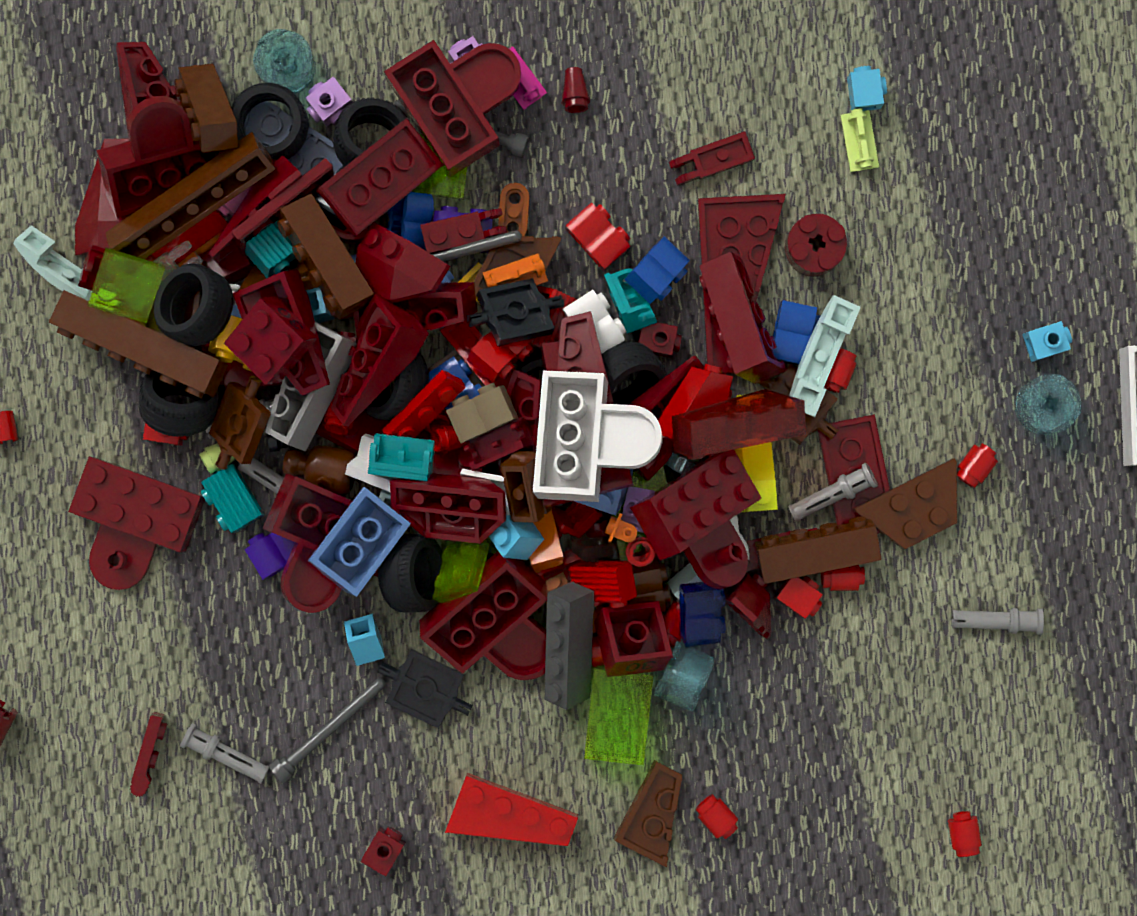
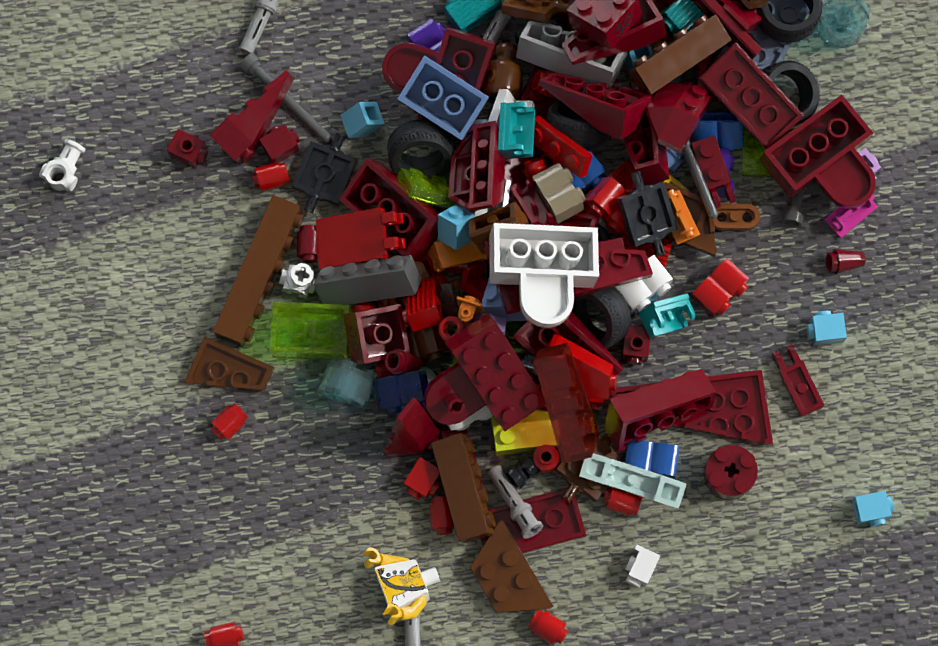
camera: 90 degrees right, 10 degrees down
(323, 93) = (813, 55): lavender brick -> none
(371, 781) = (241, 133): none -> dark red wedge
(384, 739) = (280, 143): none -> dark red brick
(424, 752) = (270, 176): none -> red brick
(503, 813) = (223, 244): red wedge -> none
(510, 711) = (307, 244): none -> dark red brick
(515, 655) = (357, 237): none -> red tile
(539, 773) = (258, 271): none -> reddish brown brick
(554, 727) = (298, 280): none -> white connector
(654, 119) = (827, 328): none -> medium azure brick
(657, 270) = (695, 337): blue brick -> none
(671, 611) = (402, 362): none -> dark red cone
(783, 462) = (542, 466): none -> red brick
(797, 482) = (516, 474): none -> black wheel
(859, 140) = (827, 507): yellowish green hinge -> none
(915, 355) = (641, 567): none -> white brick
(921, 628) = (401, 584): none -> torso

